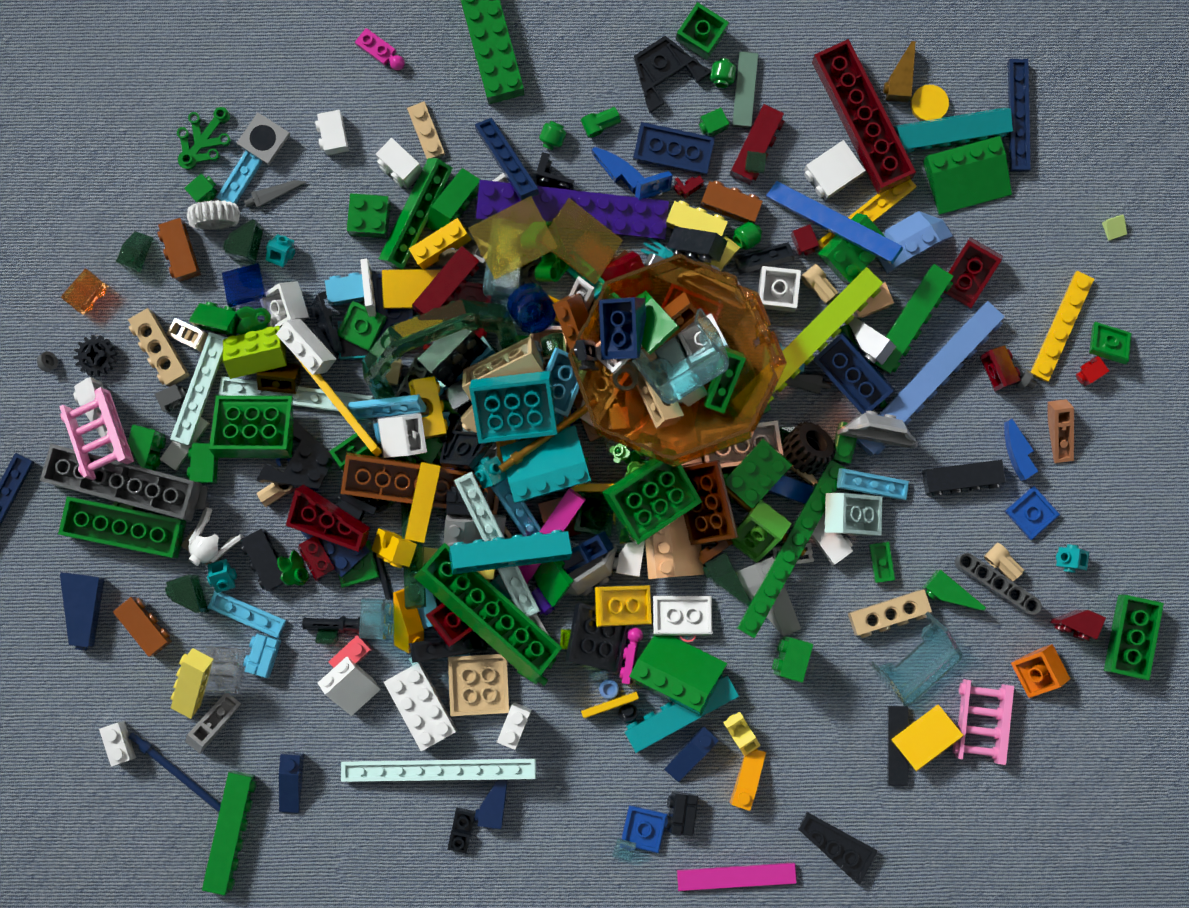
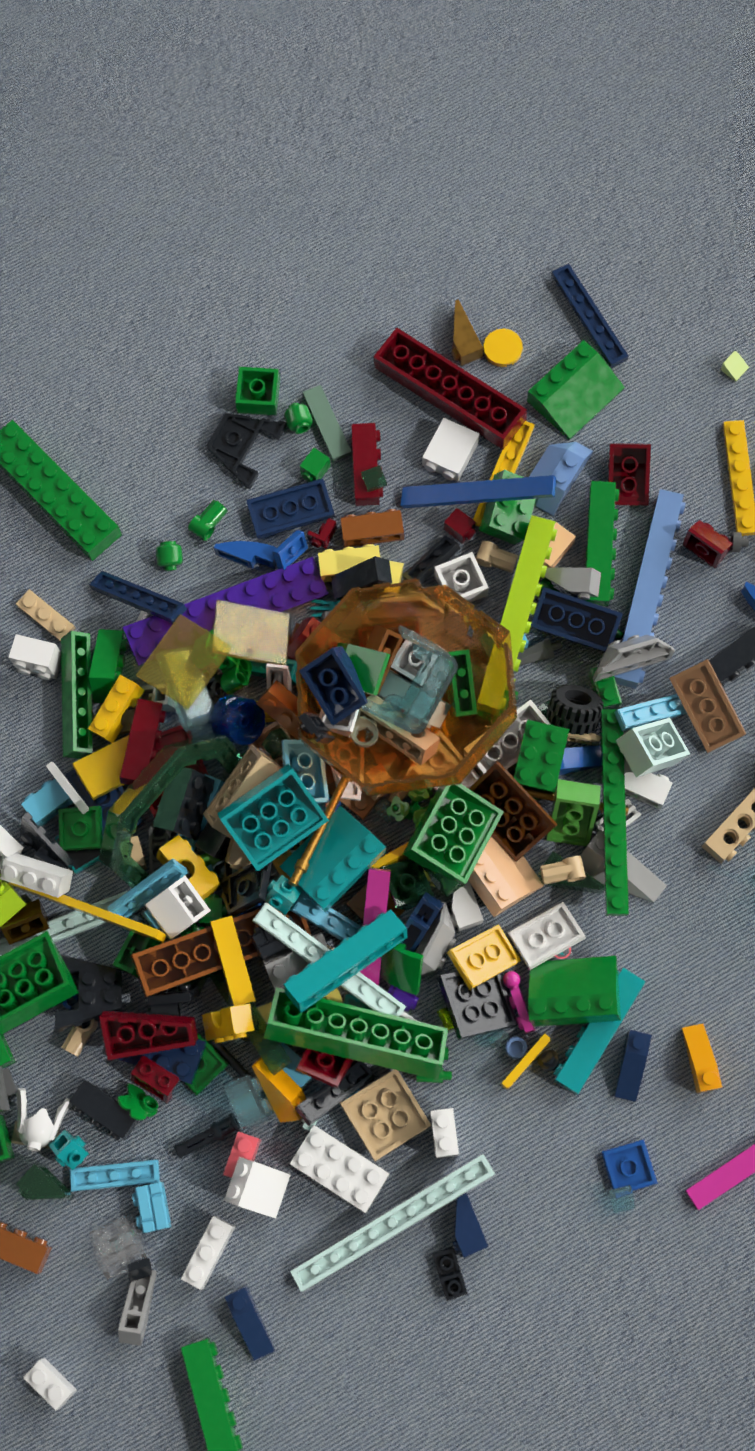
camera: 25 degrees left, 10 degrees down
(146, 747) = (82, 1372): dark blue bar -> none
(191, 682) = (94, 1273): light yellow brick -> none
(227, 697) = (139, 1269): none -> black tile
(286, 713) = (208, 1252): none -> white brick
(327, 637) = (208, 1152): clear green slope -> none
(368, 216) = (31, 721): green brick -> none
(547, 179) = (189, 594): black bracket -> none
(681, 813) = (657, 1129): black brick -> none
(708, 553) = (536, 861): reddish brown plate -> none
(728, 575) = (569, 869): none -> tan piece
(741, 733) = (669, 1017): light yellow brick -> none
(747, 235) = (404, 549): green head -> none
(792, 658) = (676, 915): green brick -> none
(881, 562) = (705, 780): green plate -> none
(918, 504) = (707, 705): none -> medium nougat plate
(955, 128) = (539, 355): teal brick -> none

